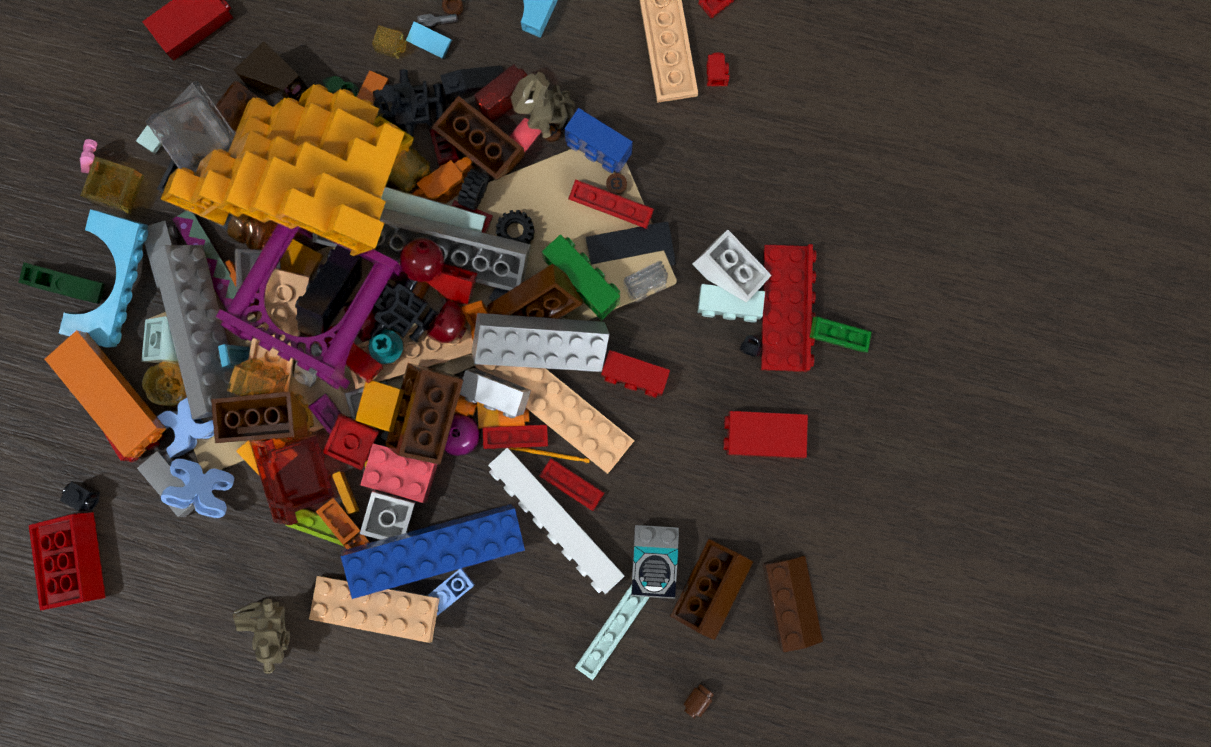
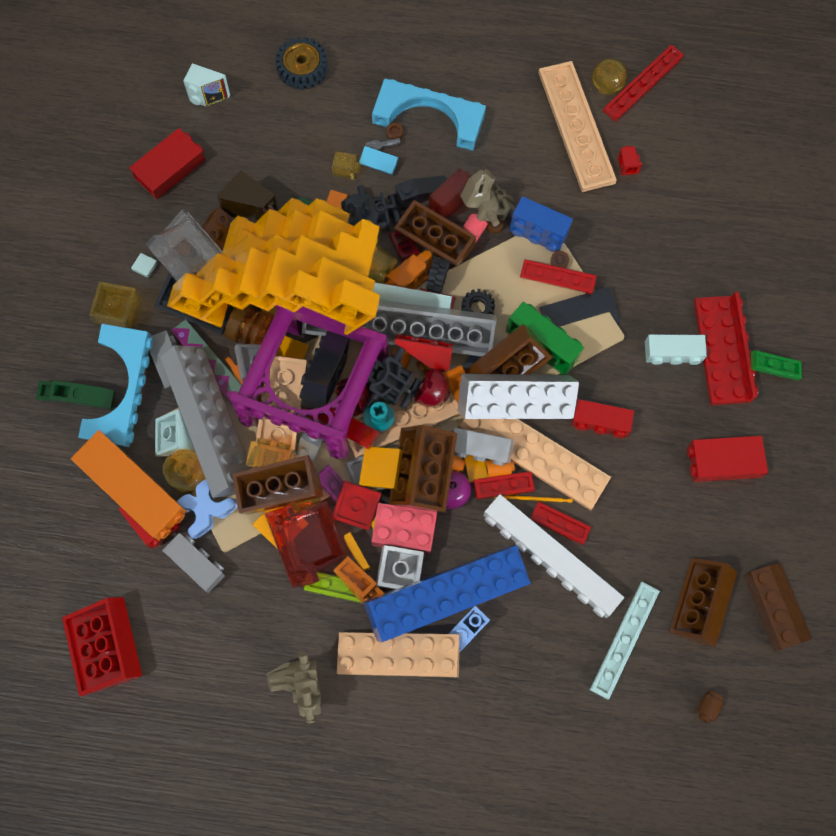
camera: 10 degrees left, 10 degrees down
(80, 496) = (110, 583): black brick -> none
(87, 156) = (92, 283): bright pink plate -> none
(197, 488) = (222, 561): light blue piece -> none
(233, 355) = (242, 437): medium azure tile -> none
(422, 259) = (406, 333): dark red cylinder -> none
(646, 280) = (601, 335): clear brick -> none
(655, 561) = (649, 580): slope -> none
(732, 267) = (672, 317): white slope -> none
(750, 349) = (699, 386): black tile -> none

